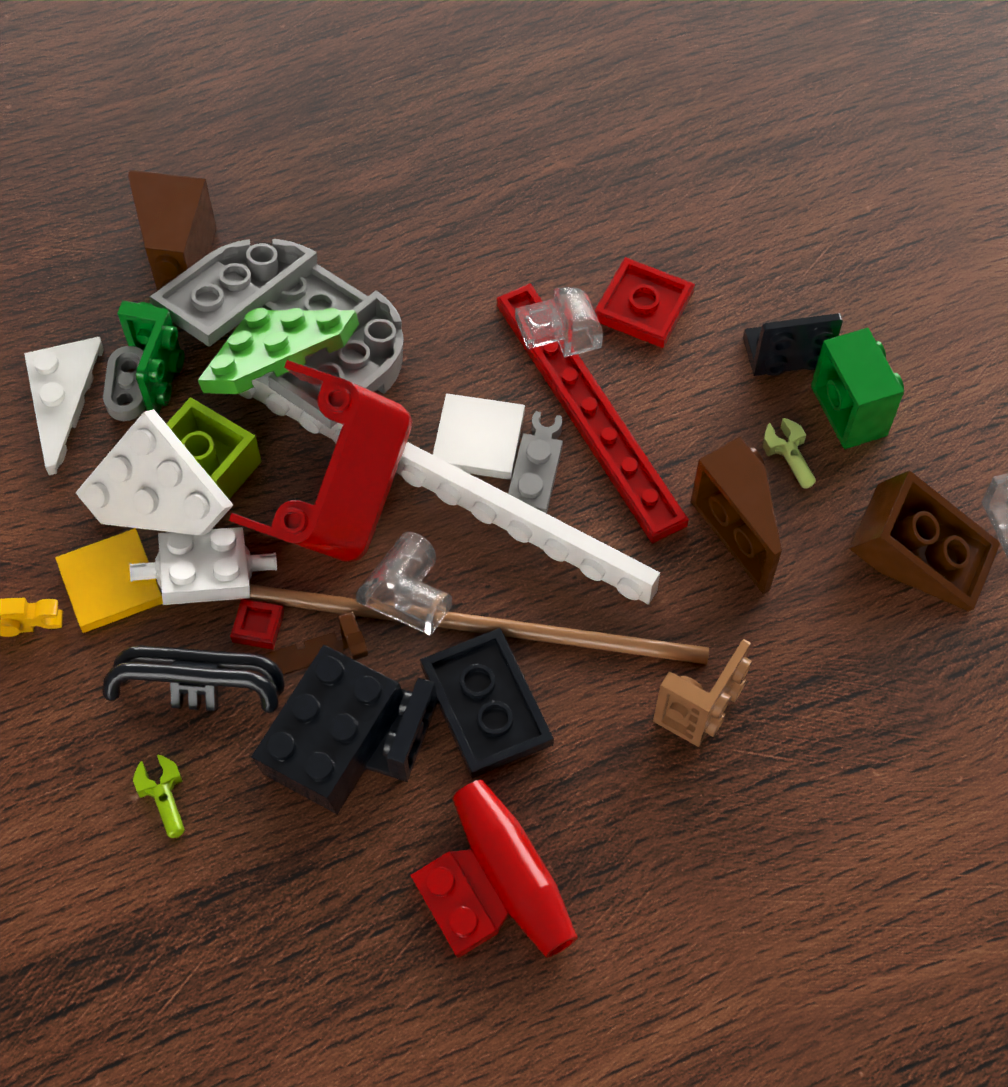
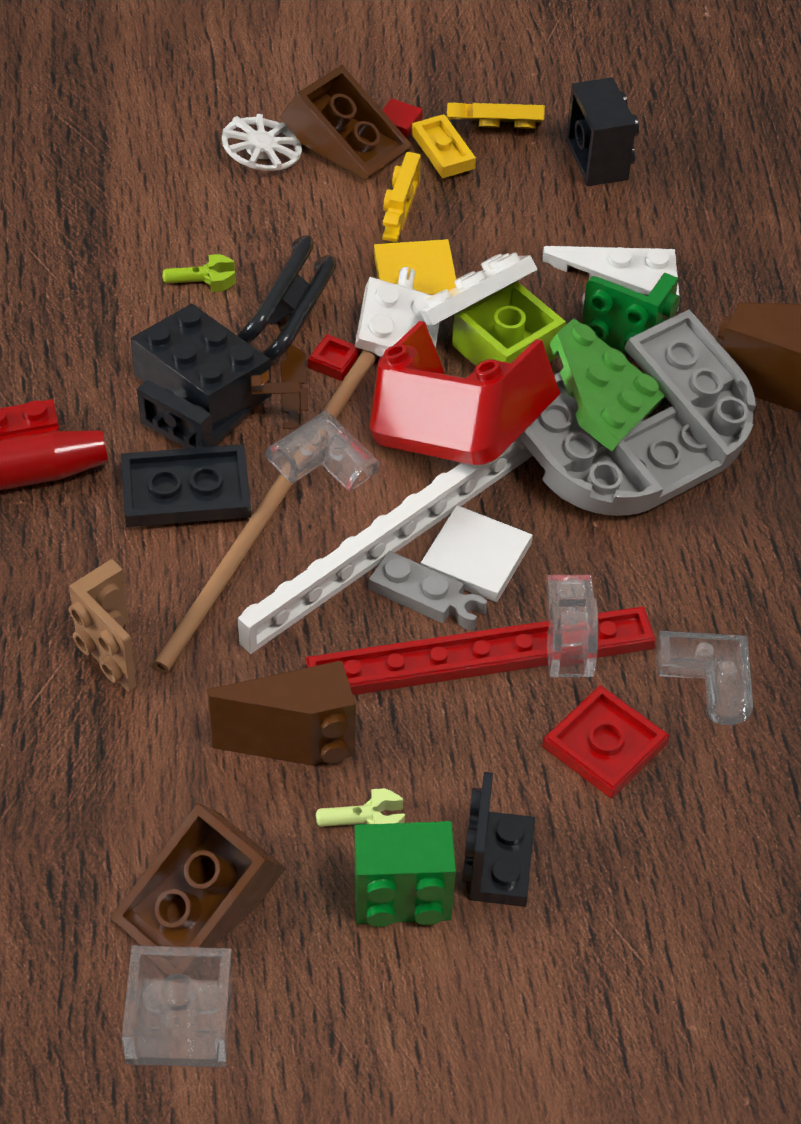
camera: 105 degrees right, 10 degrees down
(544, 232) = (718, 660): none -> clear brick

